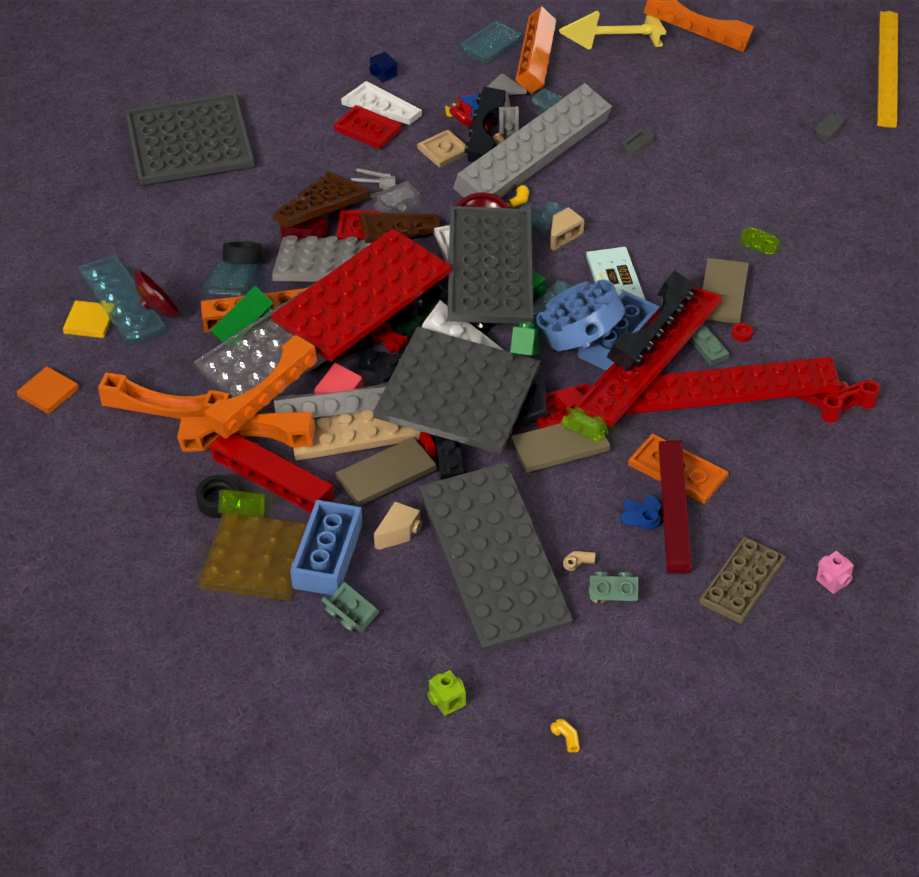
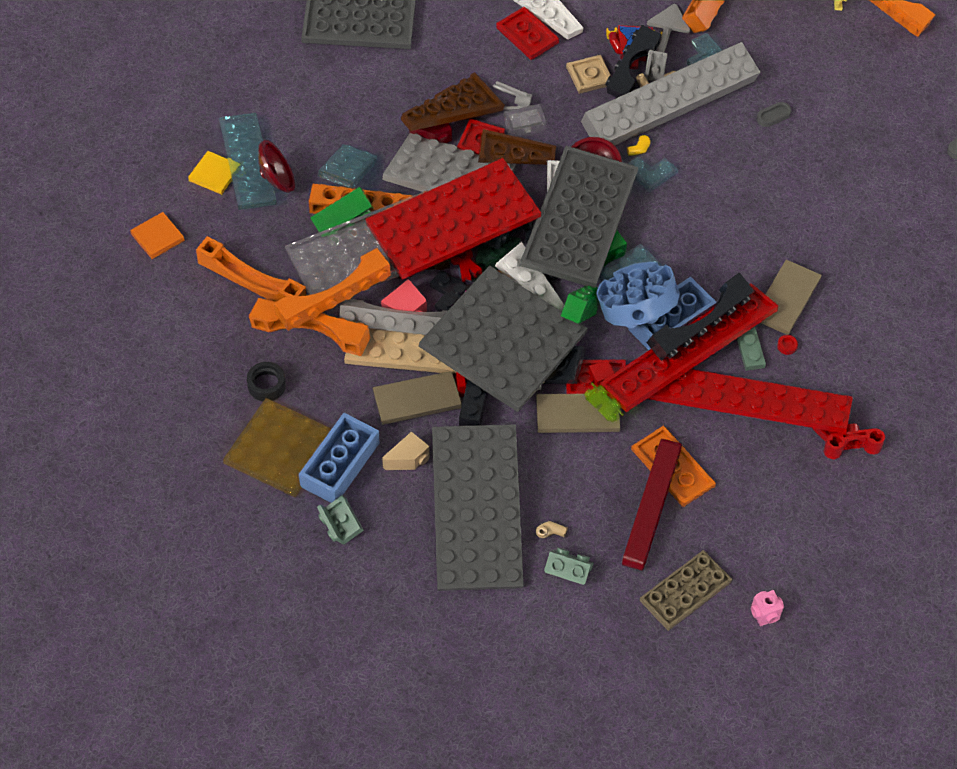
camera: 15 degrees right, 10 degrees up
(241, 252) = (366, 141): black tyre -> none
(241, 503) = (281, 396): clear neon green plate -> none
(271, 471) = (319, 371): red brick -> none
(447, 692) = (391, 622): lime brick -> none
(563, 727) = (481, 688): yellow arm -> none
(565, 228) = (667, 191): tan slope -> none
(615, 267) = (694, 254): light aqua tile -> none
(641, 514) = (621, 499): blue plate -> none
(759, 240) = (844, 253): clear neon green plate -> none

